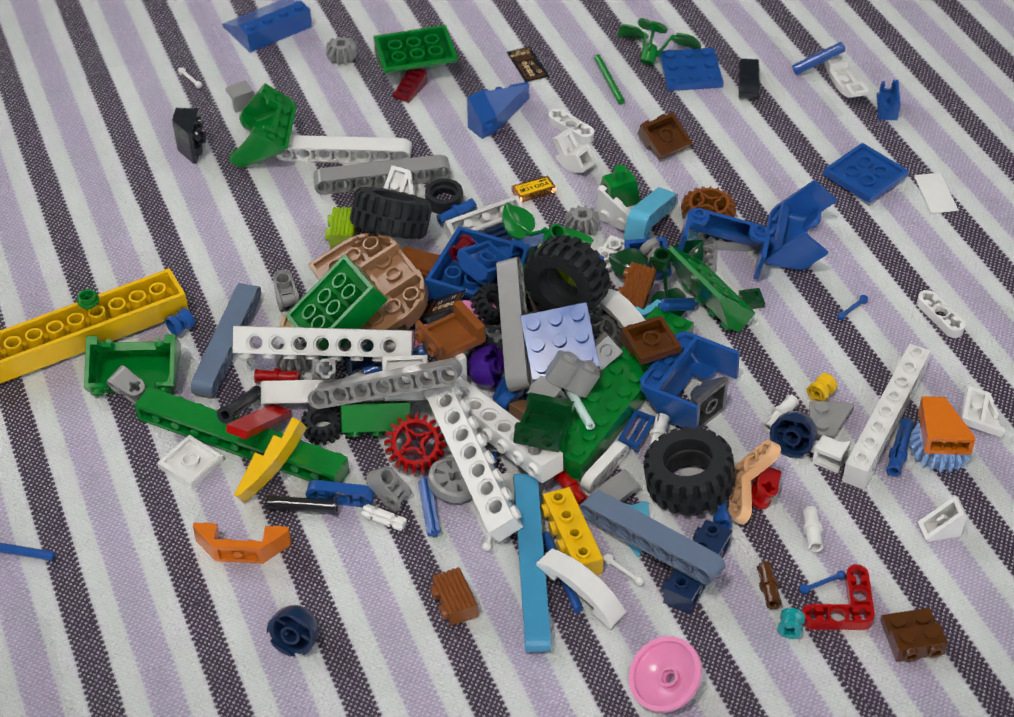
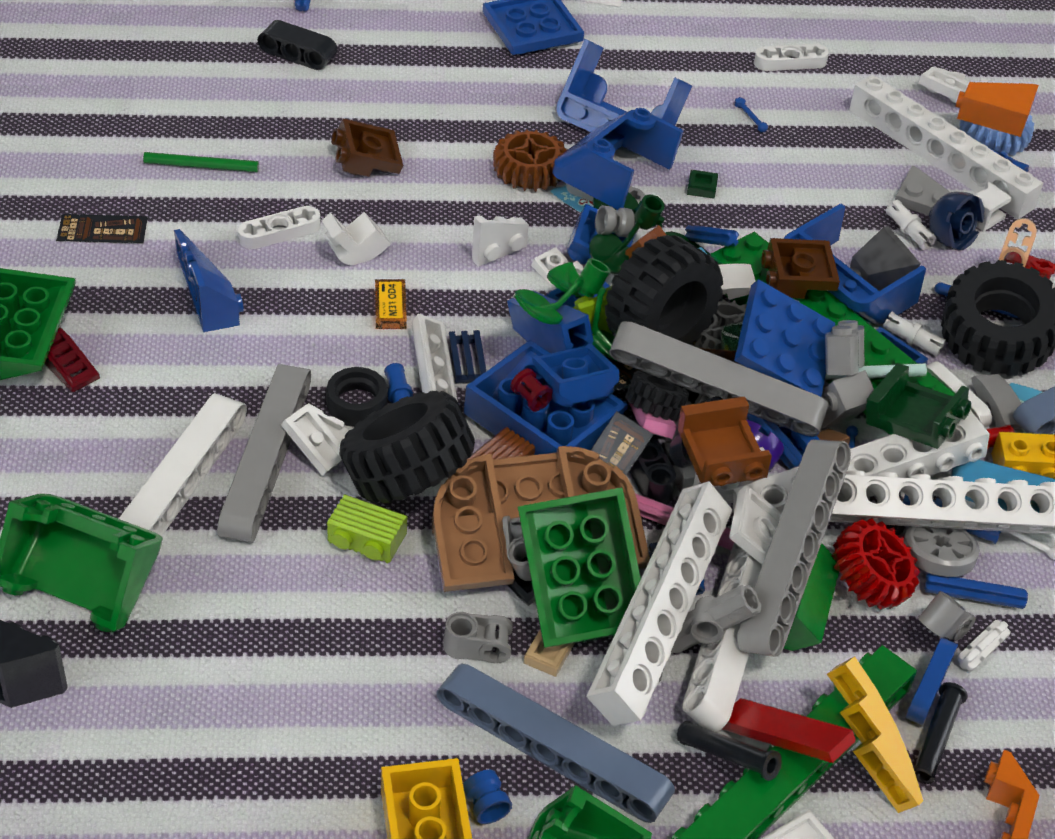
camera: 75 degrees left, 0 degrees up
(275, 375) = (664, 697): red pin -> none
(323, 433) = (782, 682): black tyre -> none
(582, 220) = (493, 275): light grey gear -> none
(622, 185) = (458, 207): green torso -> none
(648, 213) = (517, 199): medium azure beam -> none
(650, 51) = (183, 101): green plant -> none
(691, 69) = (234, 86): blue plate -> none
(711, 291) = (712, 198): green slope -> none
(822, 387) = (883, 178): yellow wheel -> none

